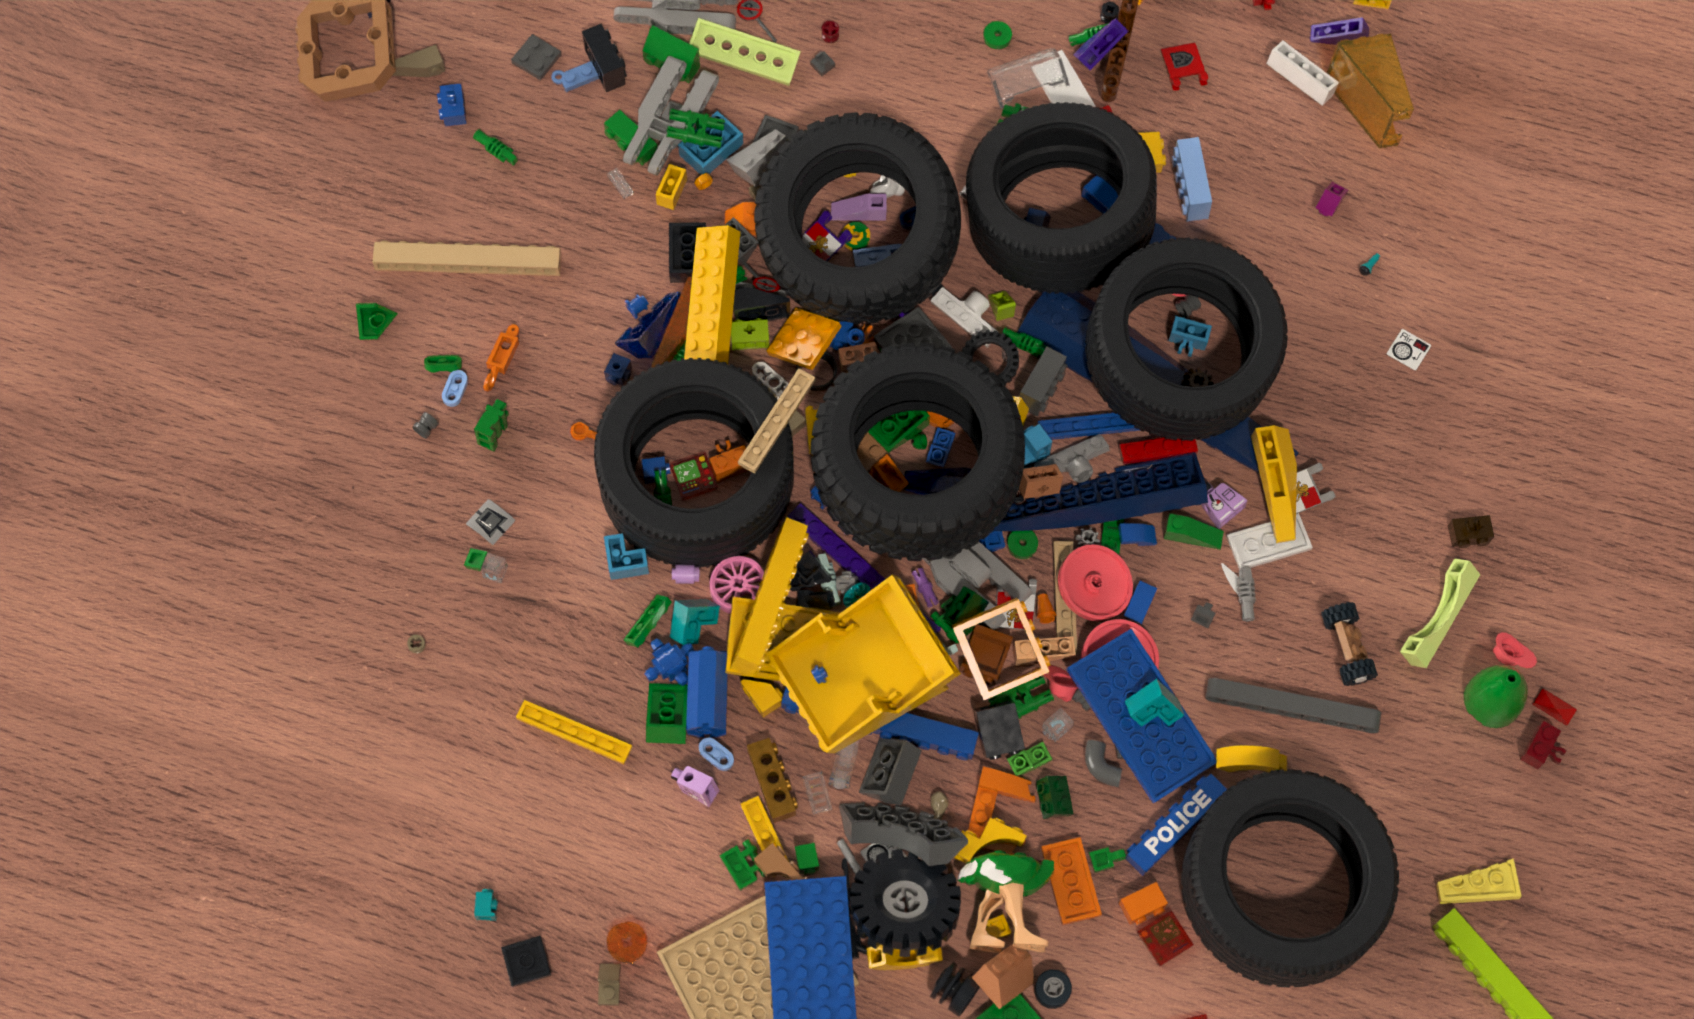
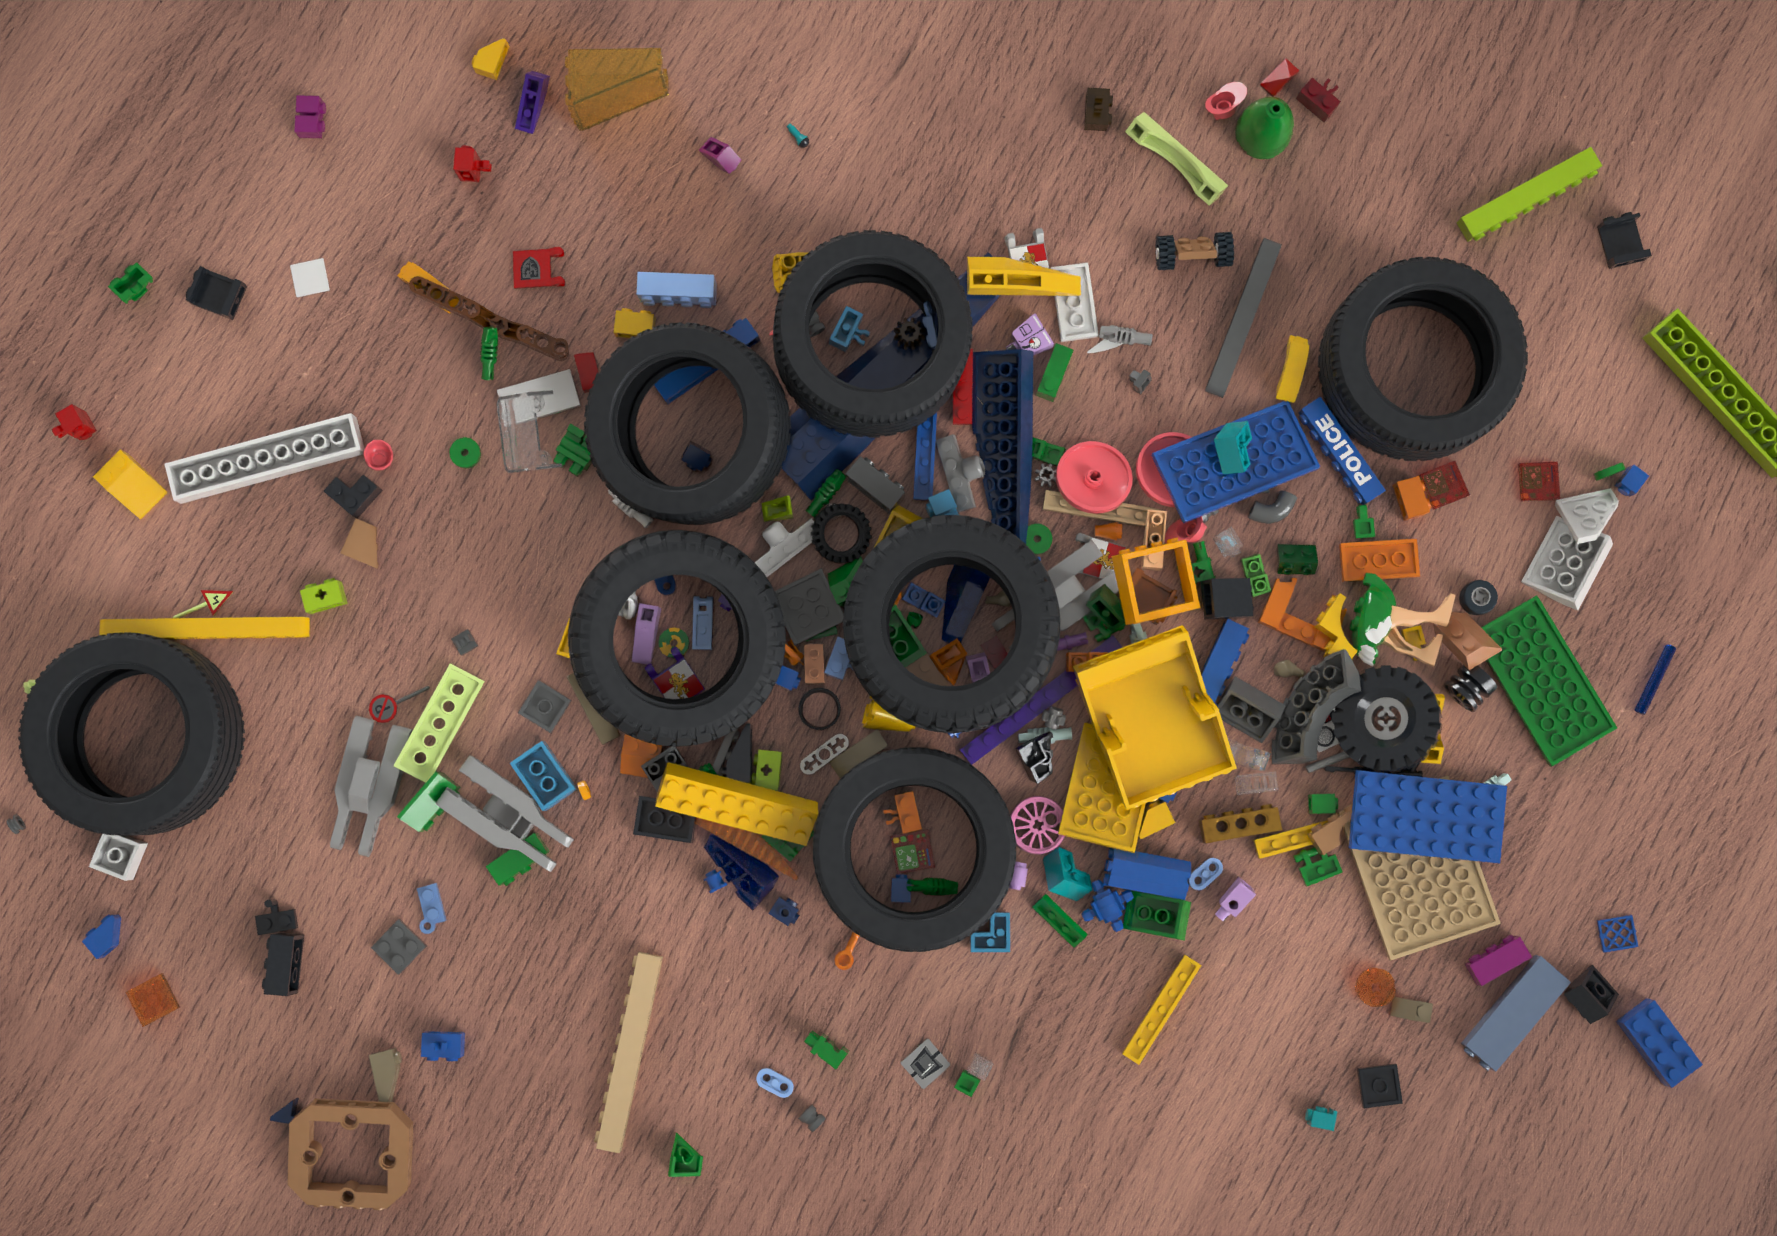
camera: 80 degrees left, 15 degrees up
(416, 637) = (1050, 1154): dark tan bush -> none
(442, 363) = (745, 1091): green plate -> none
(495, 147) = (502, 1004): green hinge -> none
(501, 358) = (748, 1030): orange piece -> none
(604, 57) = (419, 873): black brick -> none
(620, 183) = (567, 877): clear piece -> none
(671, 187) = (586, 825): yellow brick -> none
(702, 122) = (541, 793): green pin -> none
(753, 160) = (573, 725): light grey wedge -> none
(763, 283) = (717, 748): piece -> none
(770, 598) = (1070, 797): yellow brick -> none
(776, 421) = (903, 760): tan plate -> none
(803, 338) = (786, 716): light orange plate -> none
(815, 600) = (1067, 754): black piece -> none
(819, 674) = (1154, 761): blue plate -> none
(830, 27) = (425, 626): dark red wheel -> none
(855, 332) = (794, 657): blue plate -> none
(858, 589) = (1069, 710): teal gear -> none
(1040, 481) = (982, 504): nougat brick -> none
(1100, 44) = (505, 350): dark purple slope -> none
(1105, 16) = (466, 331): black wheel -> none
(1137, 534) = (1048, 426): blue slope -> none
(1140, 602) = (1116, 437): blue slope -> none
(1302, 73) = (573, 150): white brick -> none
(1408, 349) = (895, 120): white sticker -> none
(1488, 884) = (1439, 183): light yellow wing -> none

